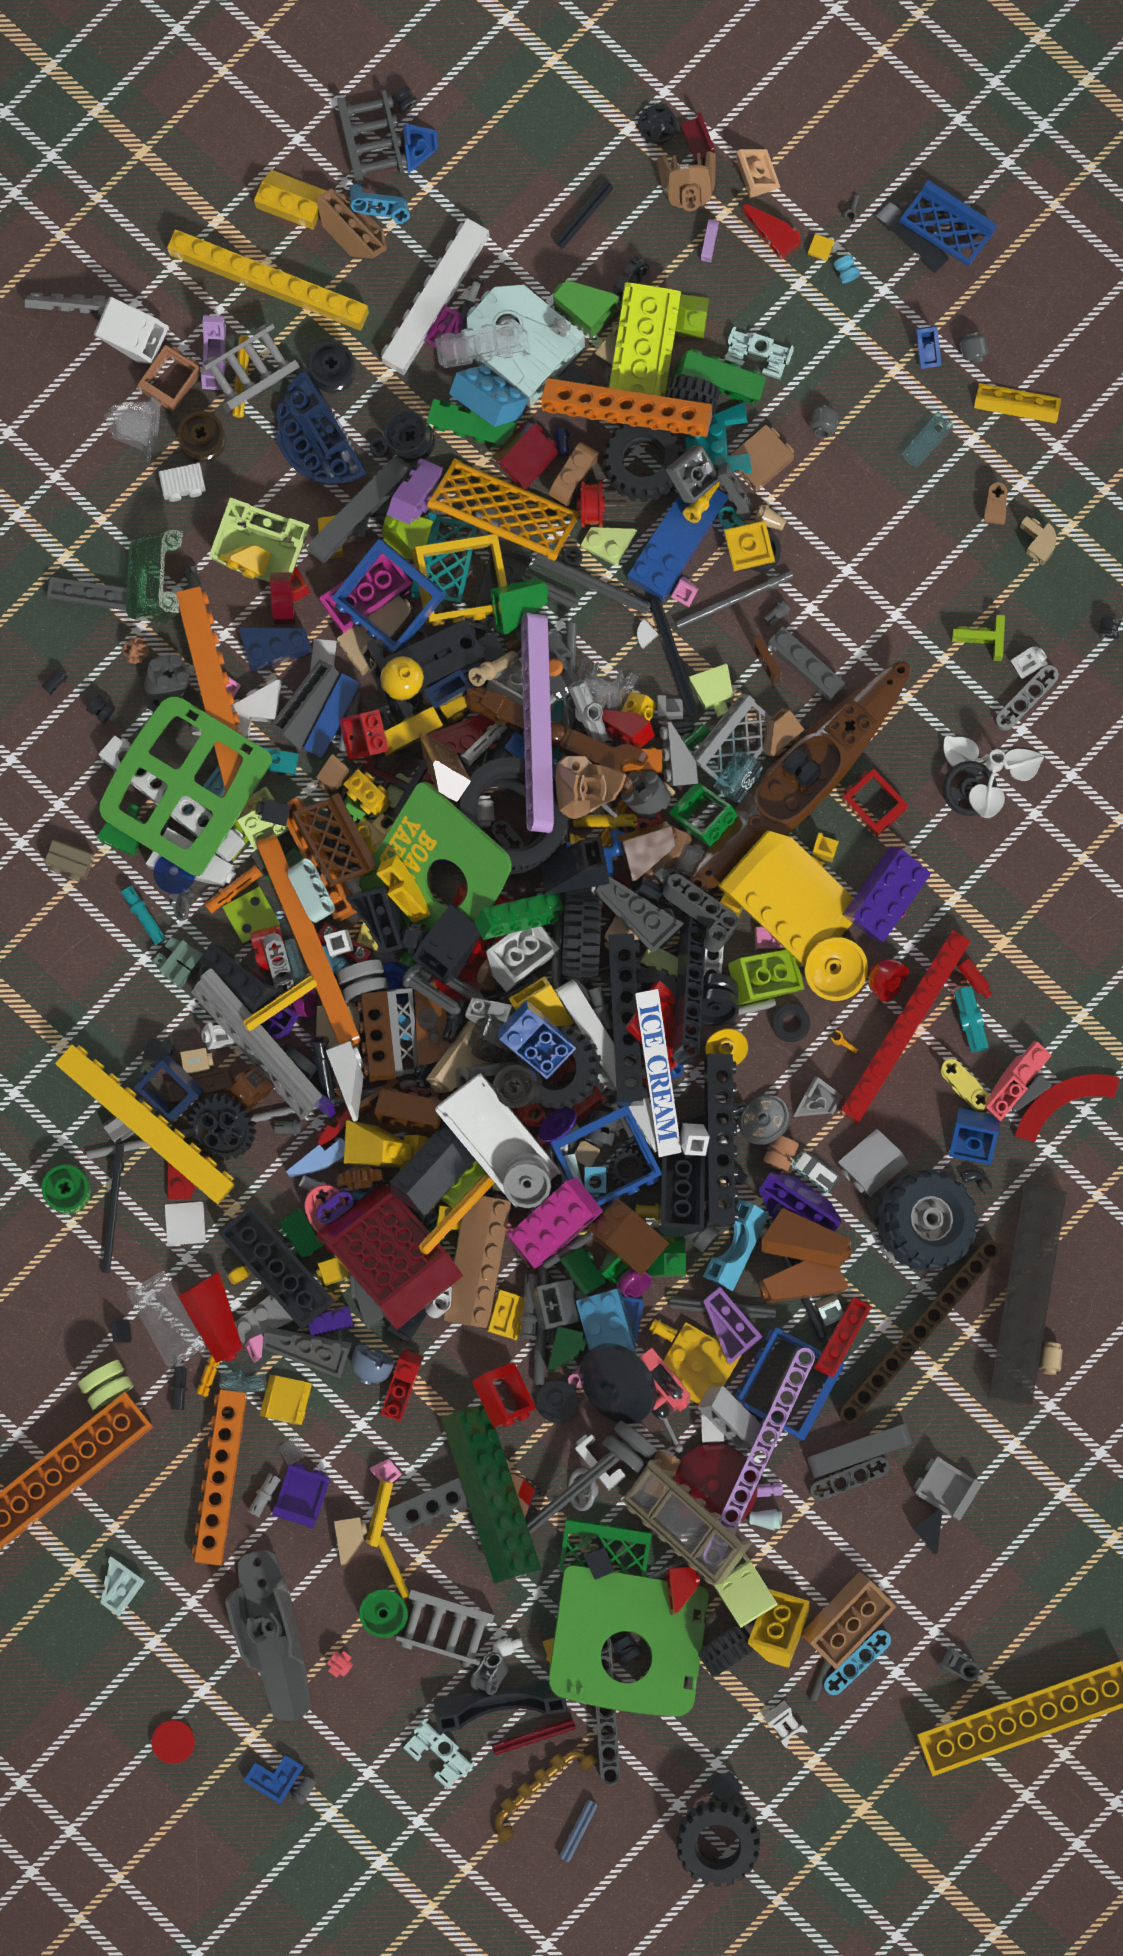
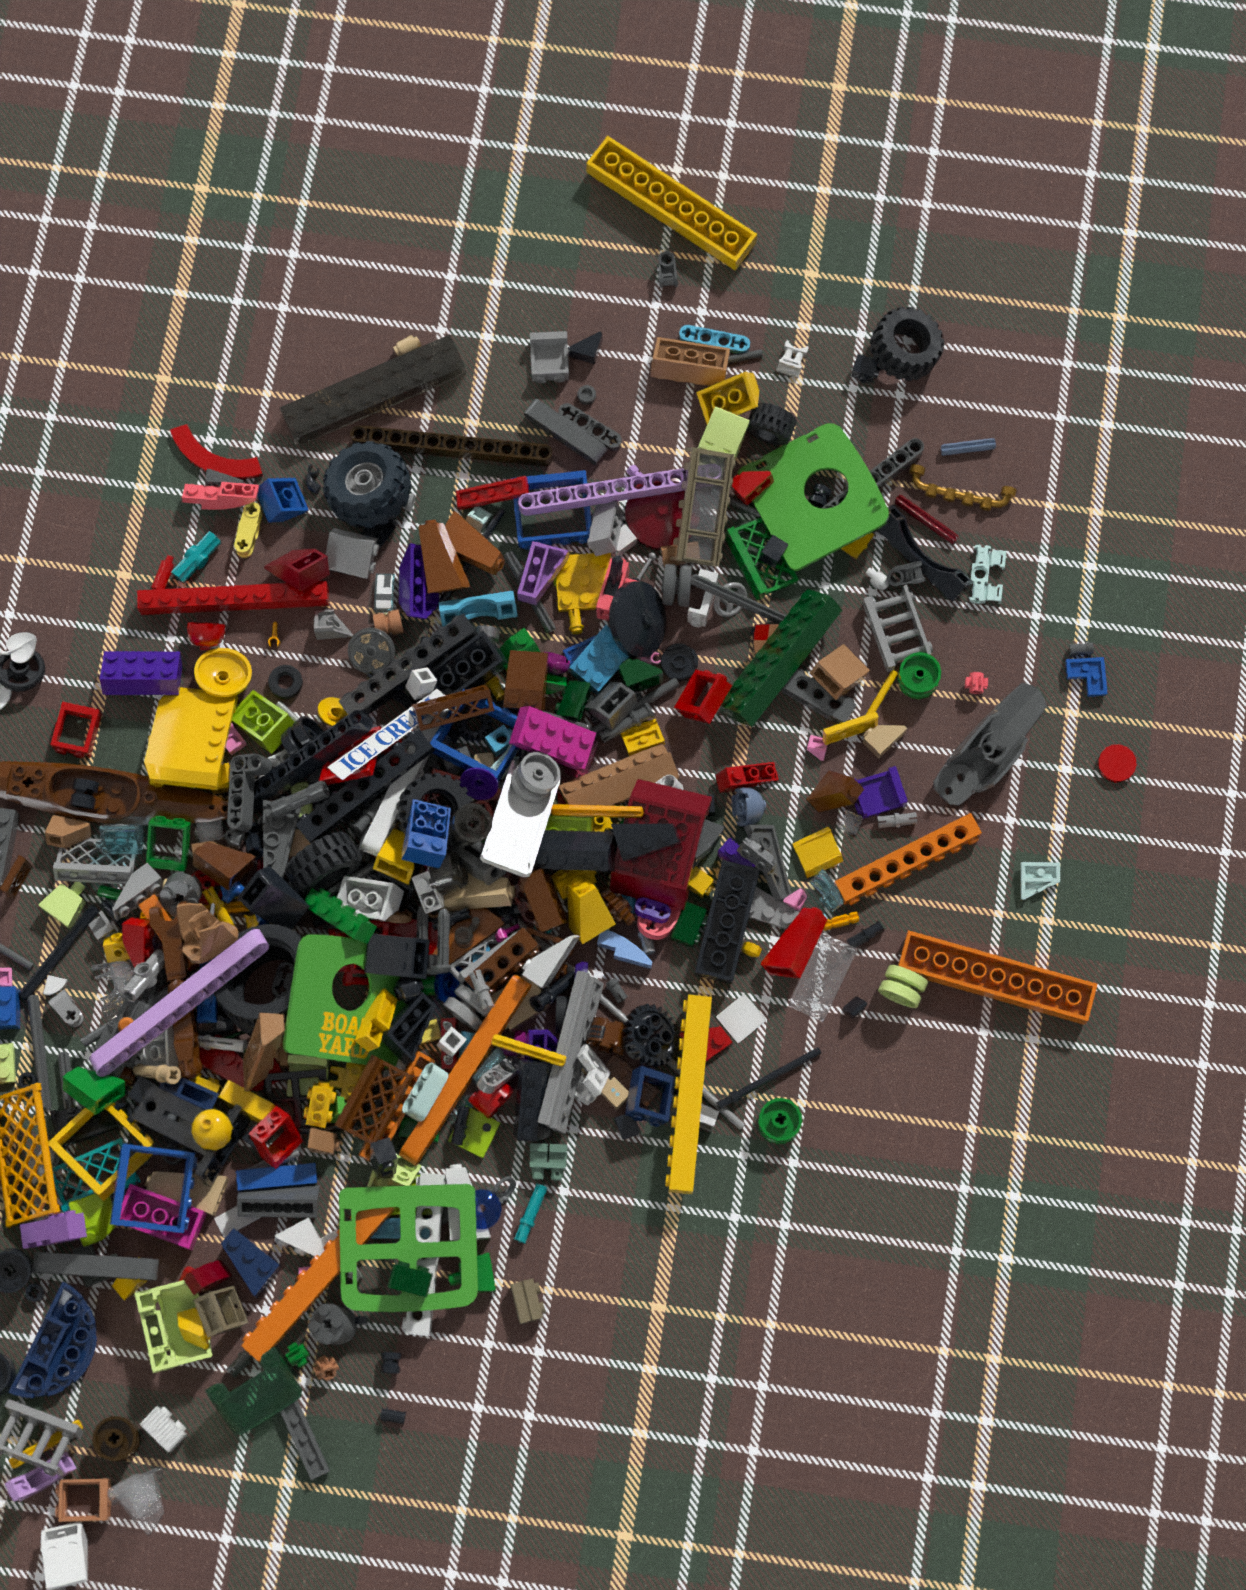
camera: 130 degrees left, 5 degrees down
(152, 765) = (410, 1279): none -> dark green brick
(164, 634) = (297, 1354): none -> green gear
(224, 1056) = (597, 1071): none -> white tile
(225, 895) = (467, 1160): orange pin -> none
(246, 578) = (212, 1316): none -> dark tan window
(262, 904) = (460, 1125): none -> black axle
(283, 761) = (333, 1189): teal plate -> none
(306, 1336) = (749, 850): none -> dark grey hinge
(327, 1452) = (834, 792): none -> reddish brown slope
(329, 1134) = (600, 955): red slope -> none
(363, 998) = (481, 990): none -> light grey pin
(395, 1236) = (644, 839): none -> black wedge
(410, 1057) = (502, 933): none -> dark pink hand
(438, 1540) = (839, 672): none -> medium nougat brick
(616, 630) = (65, 1007): none -> light grey piece
(651, 1151) = (452, 700): none -> reddish brown fence
(655, 953) = (297, 800): none -> dark grey axle
(768, 1519) = (658, 460): light aqua cone -> none
(825, 848) = (135, 743): yellow panel -> none
(885, 1499) = (586, 394): none -> dark grey tile
(889, 1103) = (300, 567): none -> dark red slope

